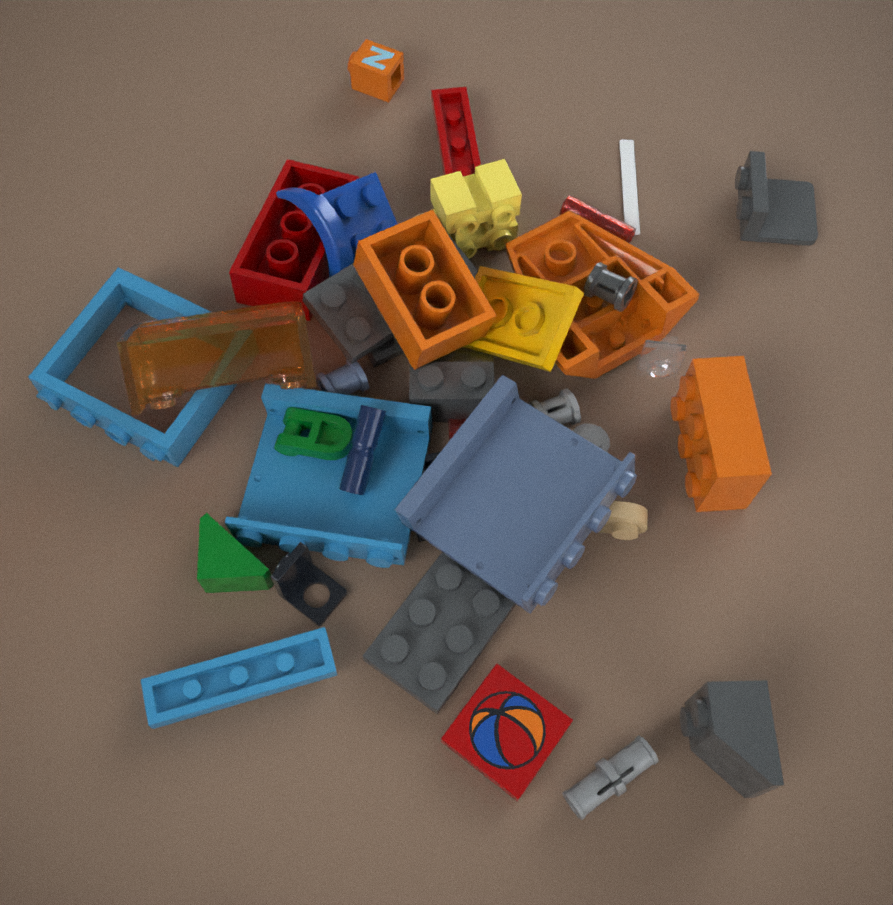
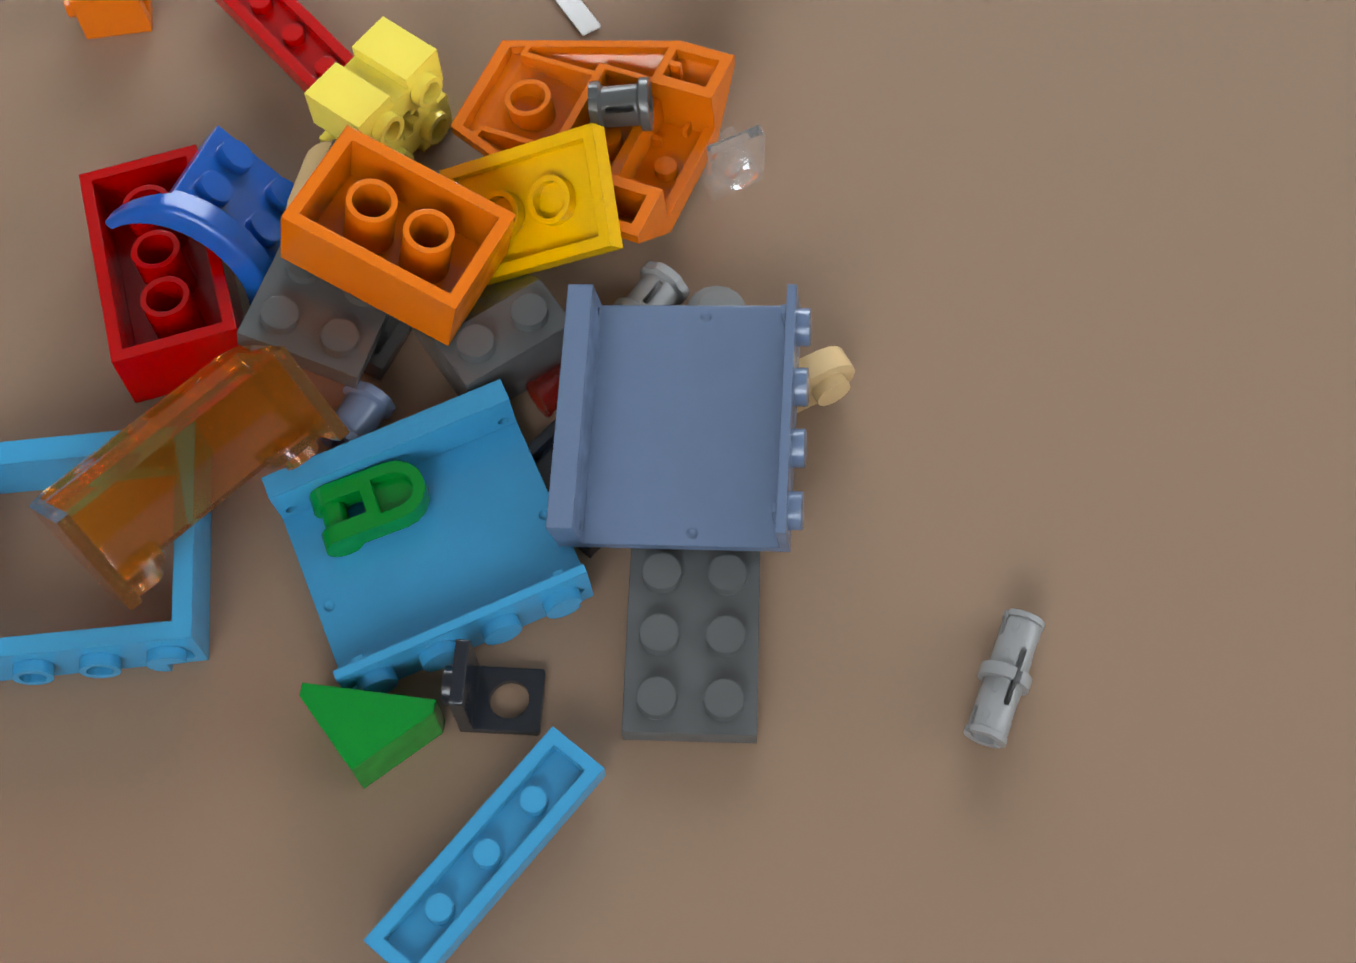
camera: 30 degrees left, 0 degrees up
(361, 454) = (451, 490): dark blue piece -> none
(506, 731) = (852, 707): tile -> none
(600, 219) = (495, 32): clear red piece -> none
(720, 434) = (867, 208): orange brick -> none
(735, 734) = (1111, 536): dark grey slope -> none

